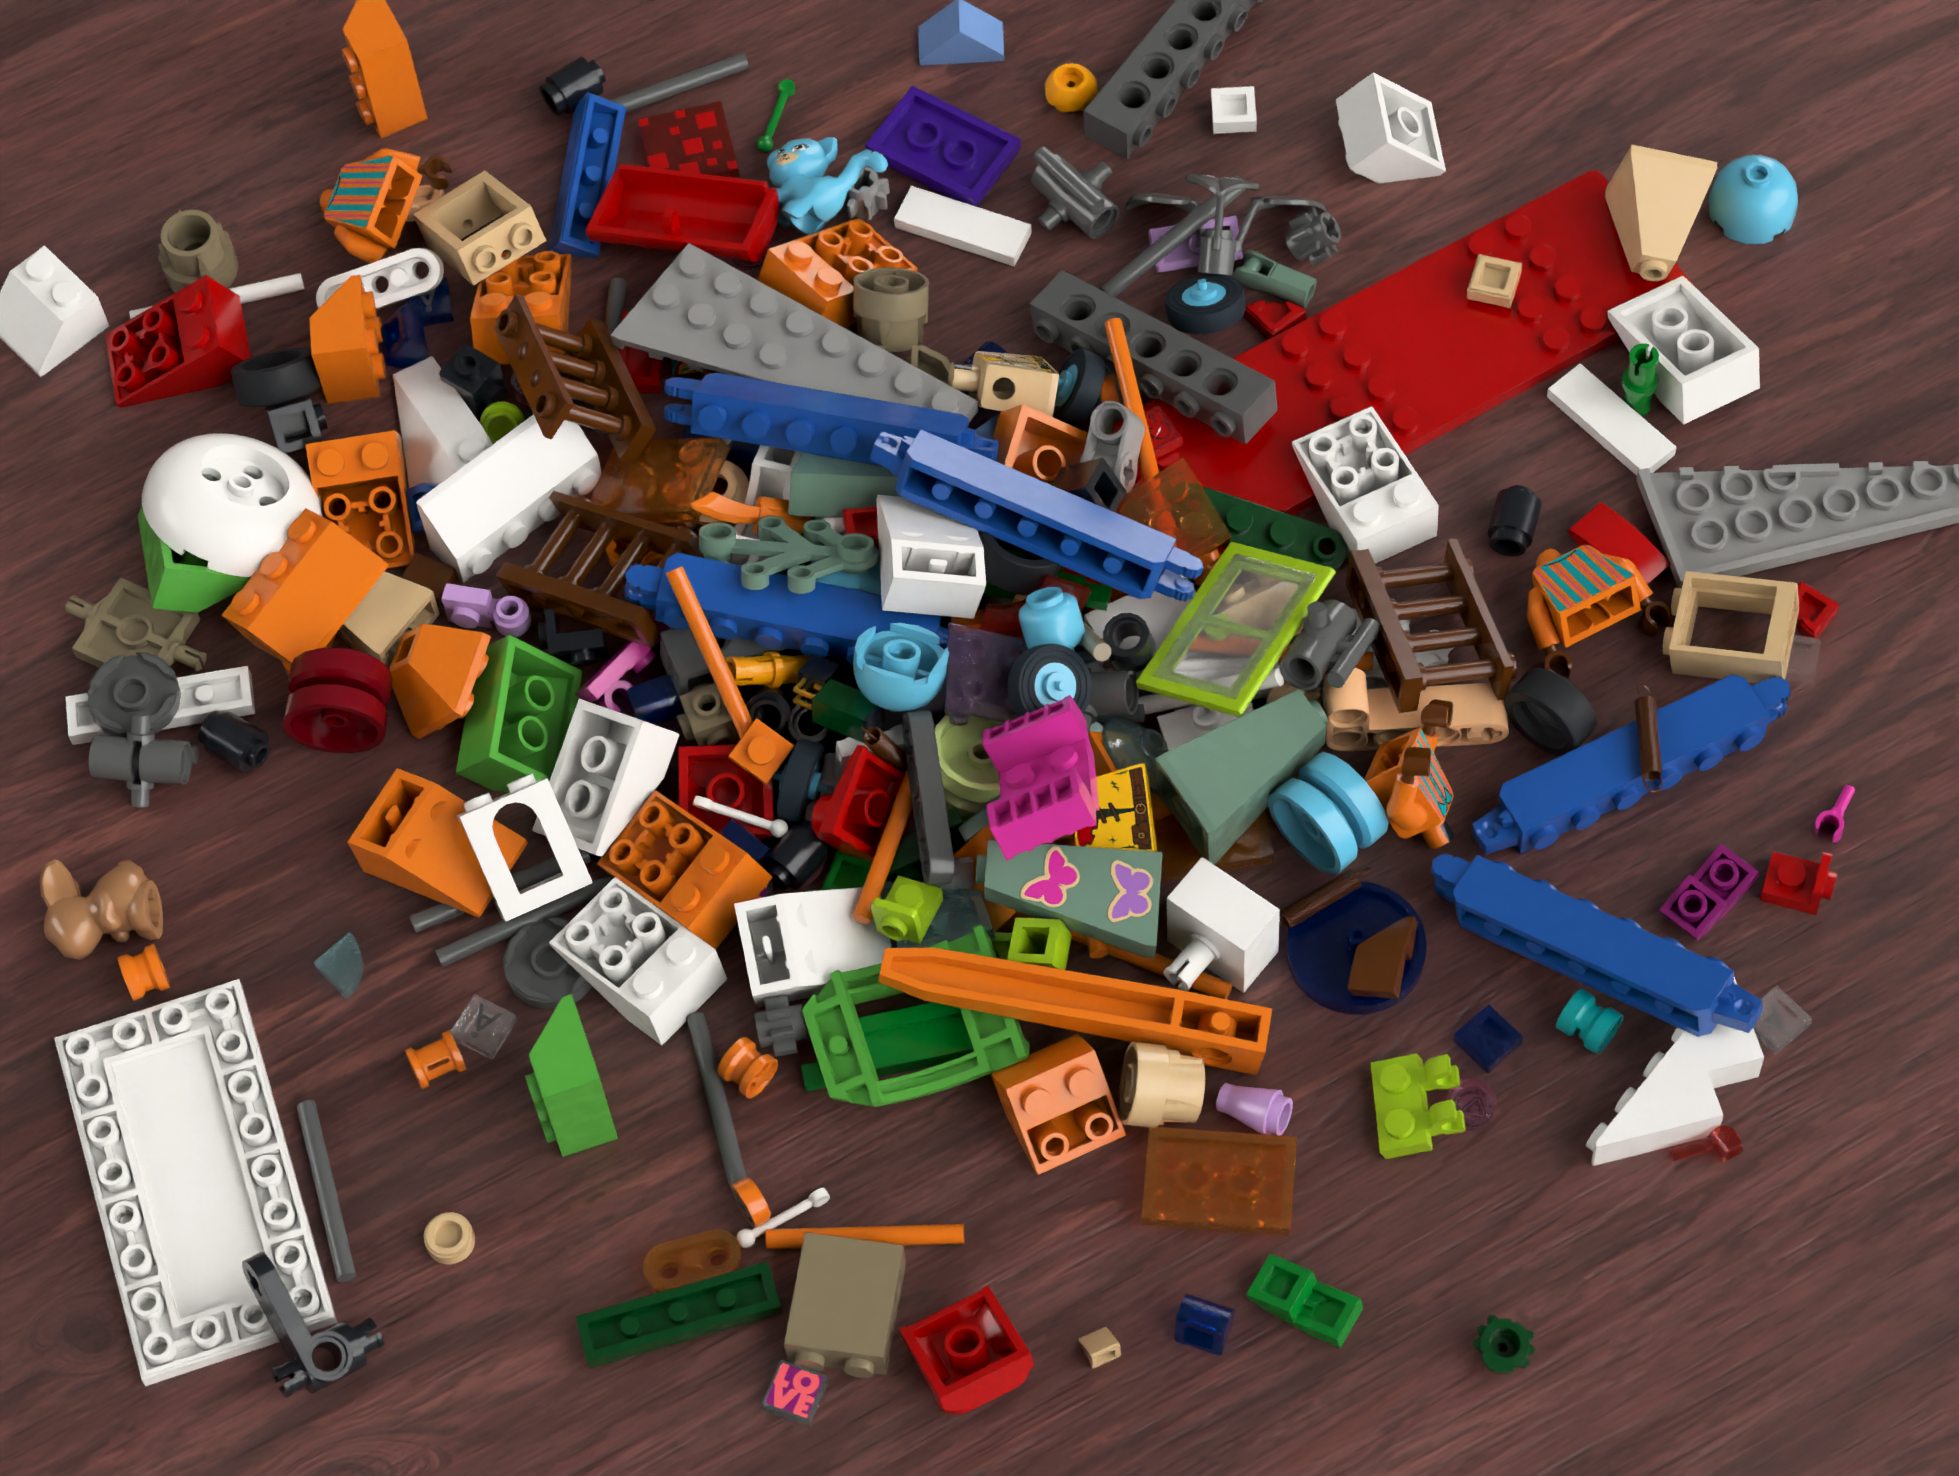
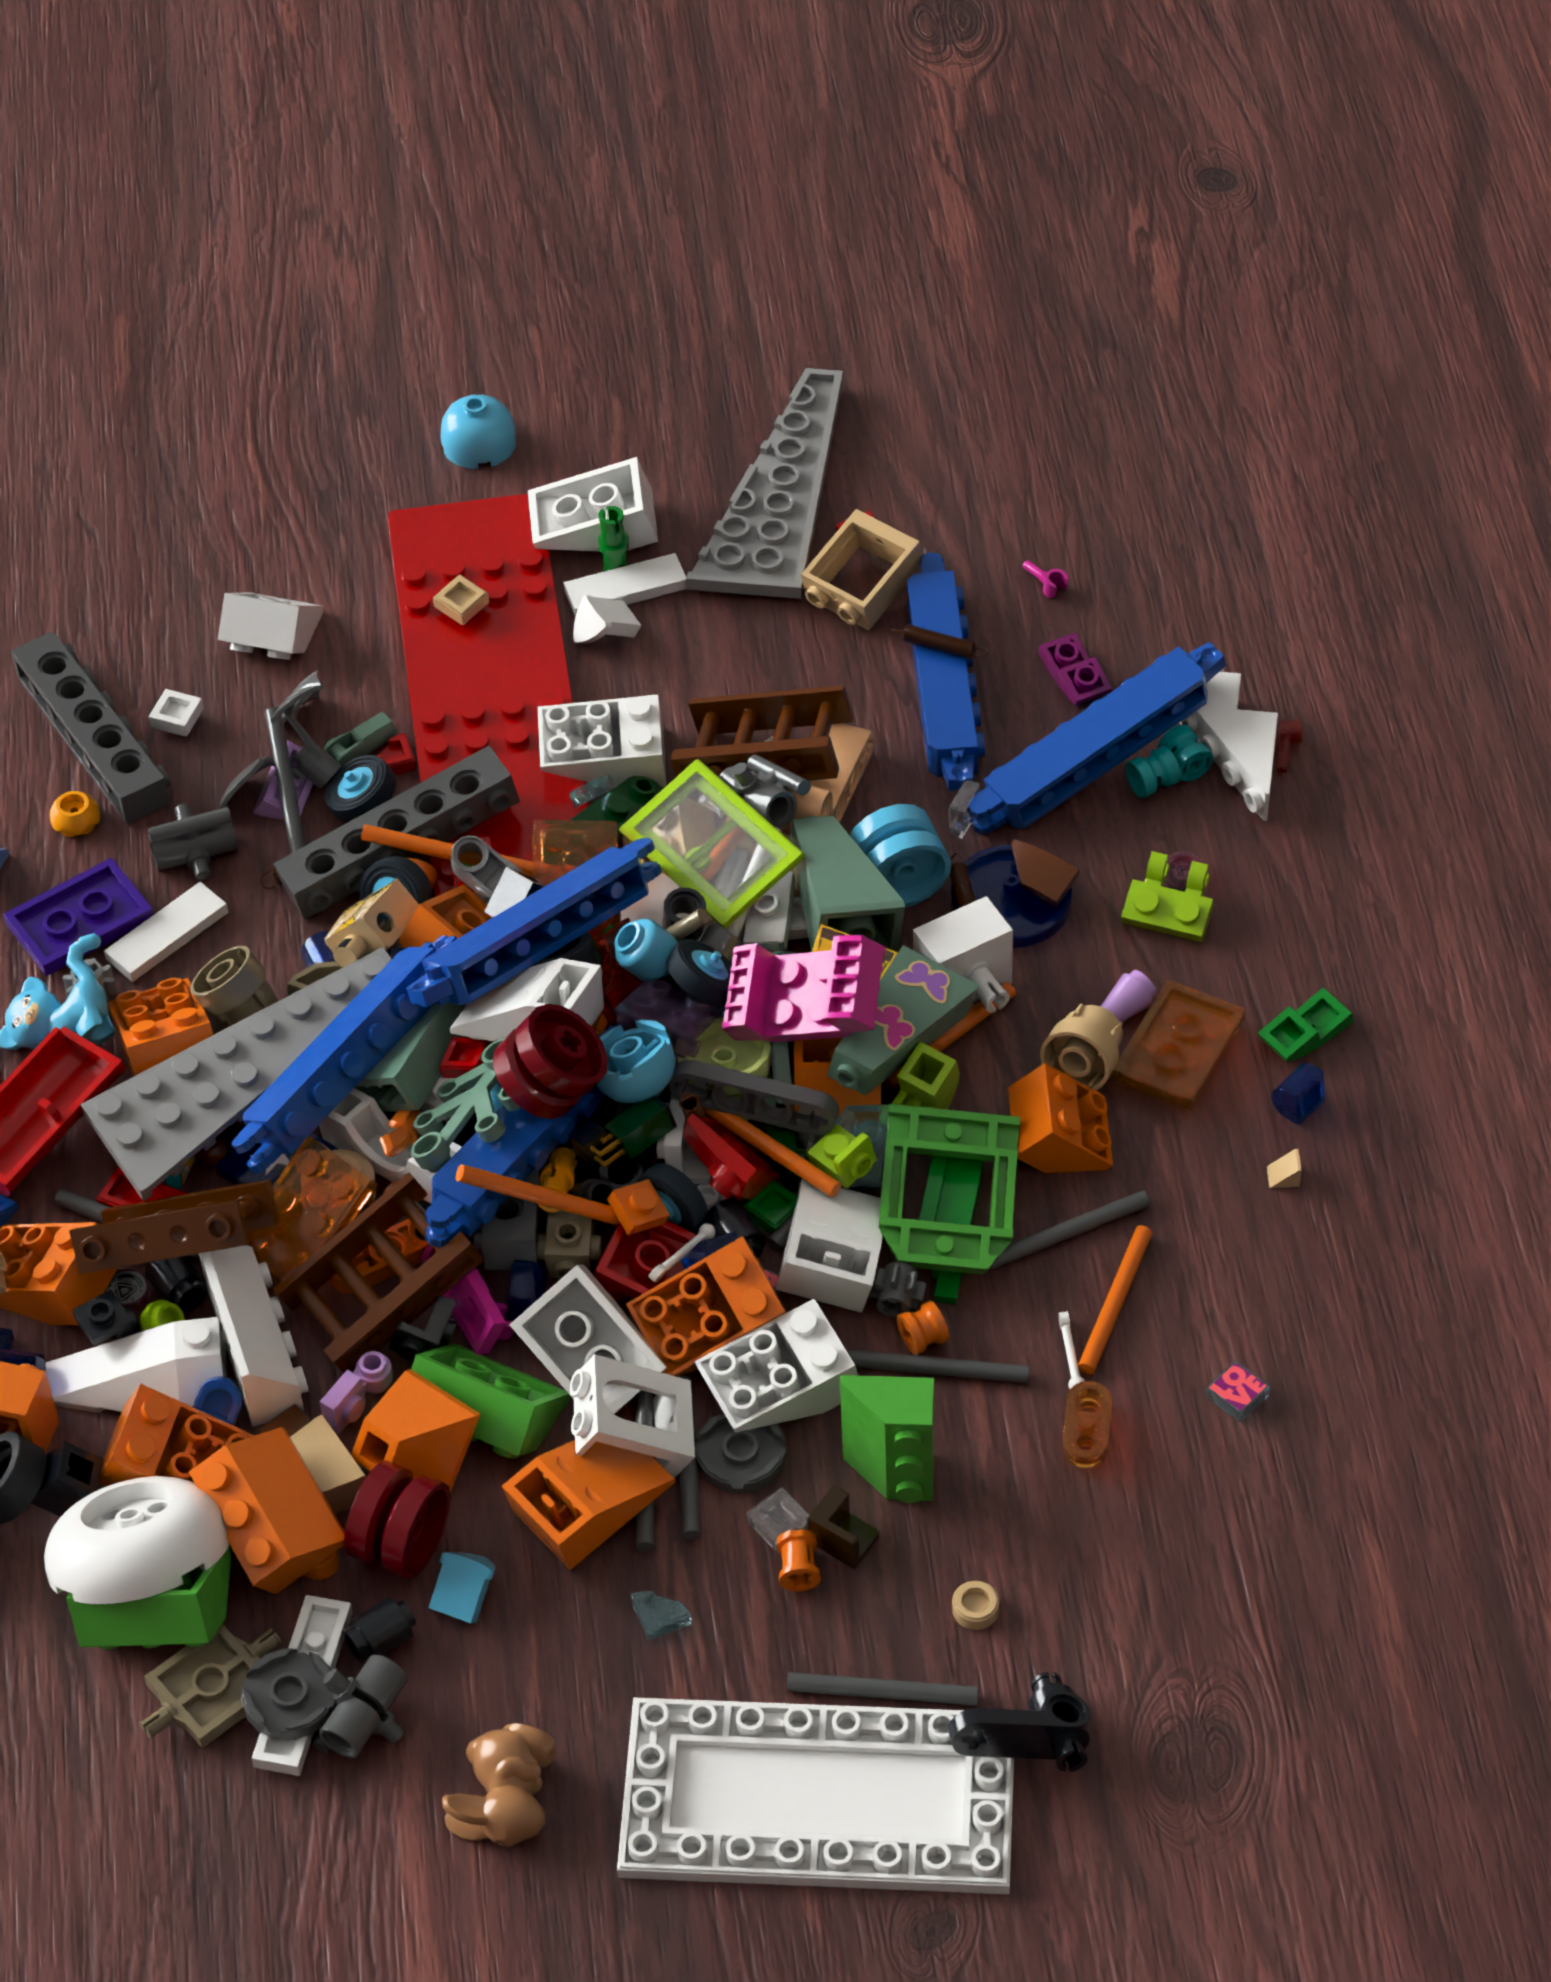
camera: 70 degrees left, 10 degrees down
(143, 972) = (589, 1771): orange wheel -> none
(309, 786) = (462, 1585): none -> medium azure tile
(485, 1084) = (839, 1531): none -> dark brown panel
(678, 1314) = (1131, 1449): dark green plate -> none
(751, 1202) = (1051, 1363): orange tile -> none
(845, 1304) = (1178, 1325): dark tan brick -> none
(863, 593) = (550, 1061): none -> dark red wheel
(939, 1164) = (1073, 1227): none -> dark grey bar
(968, 1352) = (1259, 1250): red slope -> none
(1197, 1025) = (995, 1060): orange piece -> none
(1296, 507) = (591, 790): none -> clear light blue tile
(1313, 236) = (340, 699): dark grey gear -> none
(1412, 781) = (897, 786): orange torso -> none
(1442, 846) = (959, 810): none -> clear tile
(1488, 1038) = (1131, 842): clear blue tile -> none
(1508, 1335) = (1400, 915): dark green animal -> none
(1514, 520) = (685, 668): black brick -> none
(1546, 421) = (601, 617): none -> white tile
(1550, 711) = (893, 708): black tyre -> none
(1584, 595) = (783, 646): orange torso -> none
(1617, 537) = (736, 618): red slope -> none
(1635, 1043) = (1191, 756): none -> teal wheel
(1655, 206) = (465, 476): tan slope -> none
(1798, 882) = (1094, 614): red bracket -> none

